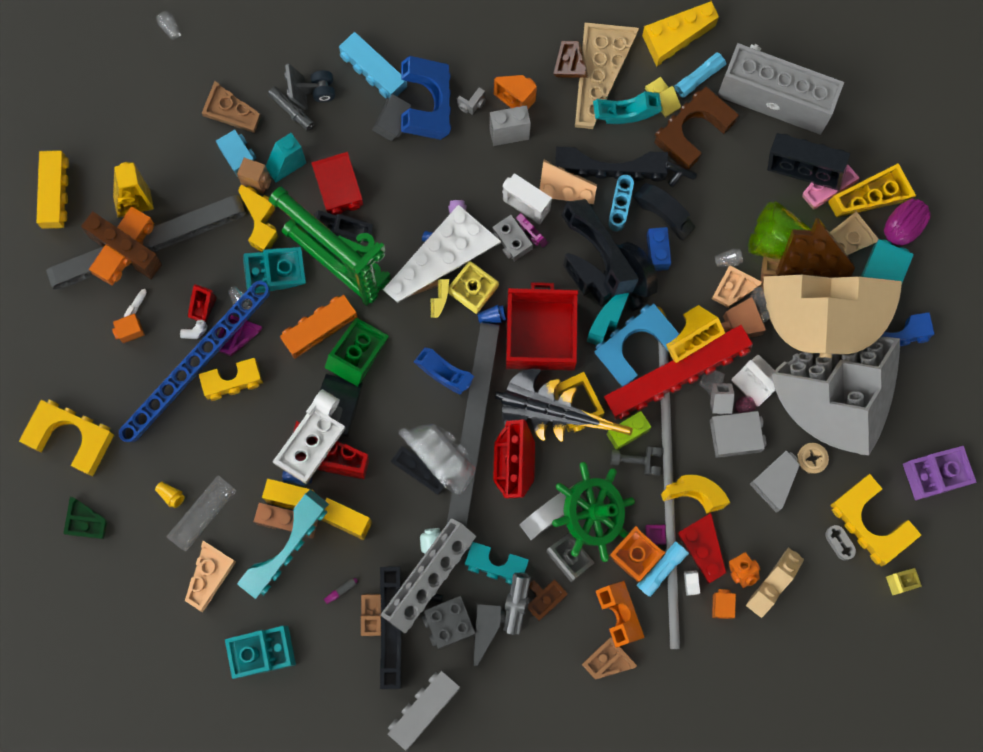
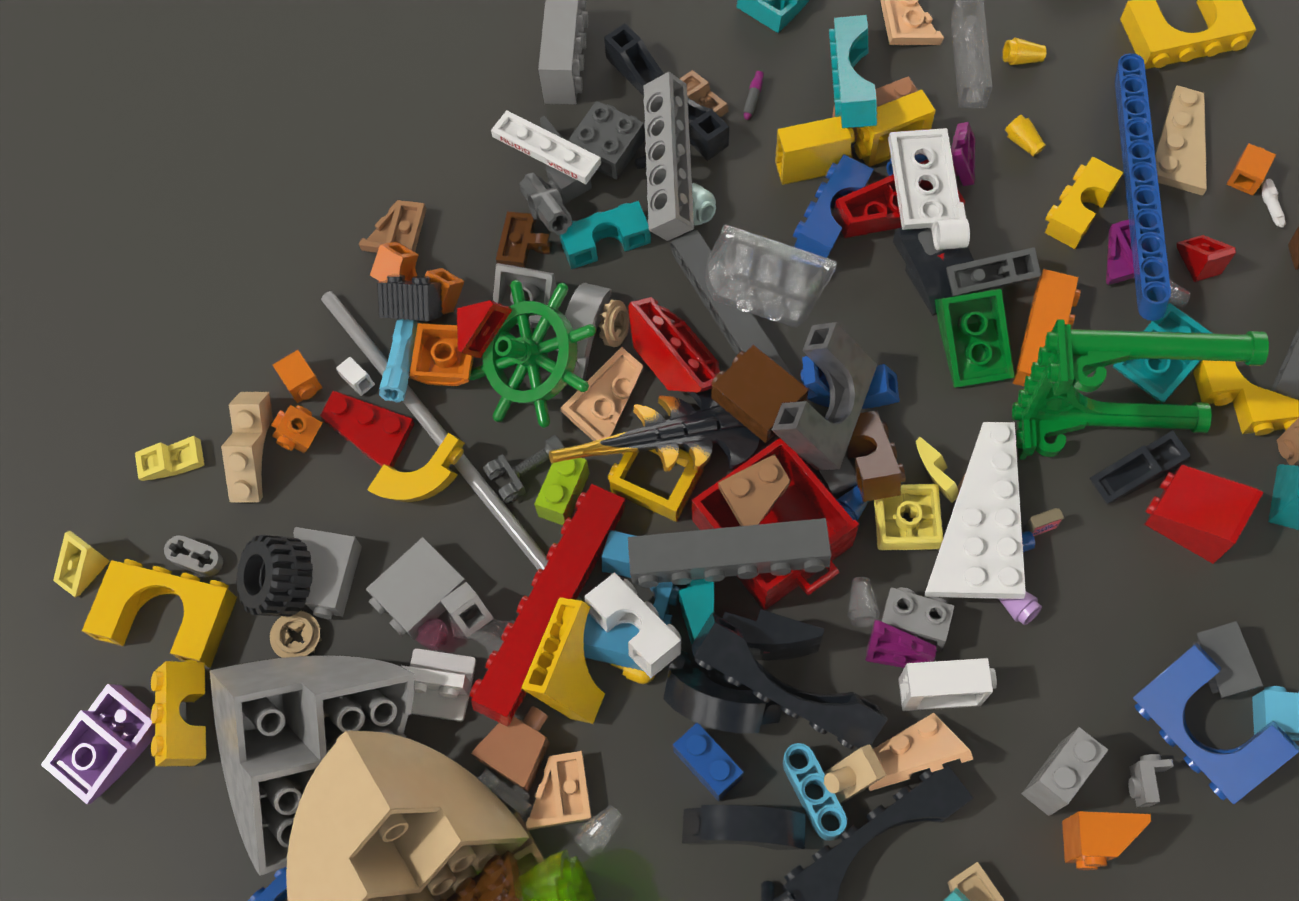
camera: 150 degrees right, 10 degrees down
(143, 374) = (1182, 144): none -> tan wing
(196, 332) = (1175, 222): white arm -> none
(220, 442) = (1025, 135): none -> yellow cone
(259, 461) = (964, 153): none -> magenta wing
(316, 372) = (994, 272): none -> dark grey slope
(387, 465) = (820, 229): none -> blue arch
(412, 237) = (1044, 522): none -> dark tan tile
(471, 310) = (876, 465): none -> reddish brown arch
(483, 344) = (849, 375): none -> flat silver arch
(491, 636) = (546, 147): none -> white plate
(496, 396) = (755, 391): none -> reddish brown brick
(528, 266) = (862, 603): none -> clear cone
(534, 501) = (614, 323): none -> tan gear
(544, 340) = (755, 490): none -> medium nougat wing
(566, 466) = (609, 390): none -> light nougat wing
(583, 317) = (729, 552): none -> dark grey brick
(600, 193) = (854, 774): none -> tan tile
(610, 547) = (478, 326): none -> red slope
(635, 597) = (409, 299): none -> black brick
(649, 305) = (616, 603): none -> white arch
(656, 534) = (439, 400): magenta tile -> none
(807, 487) = (274, 576): none -> black tyre
(822, 611) = (166, 461): none -> light yellow slope
(890, 470) = (174, 739): none -> yellow arch

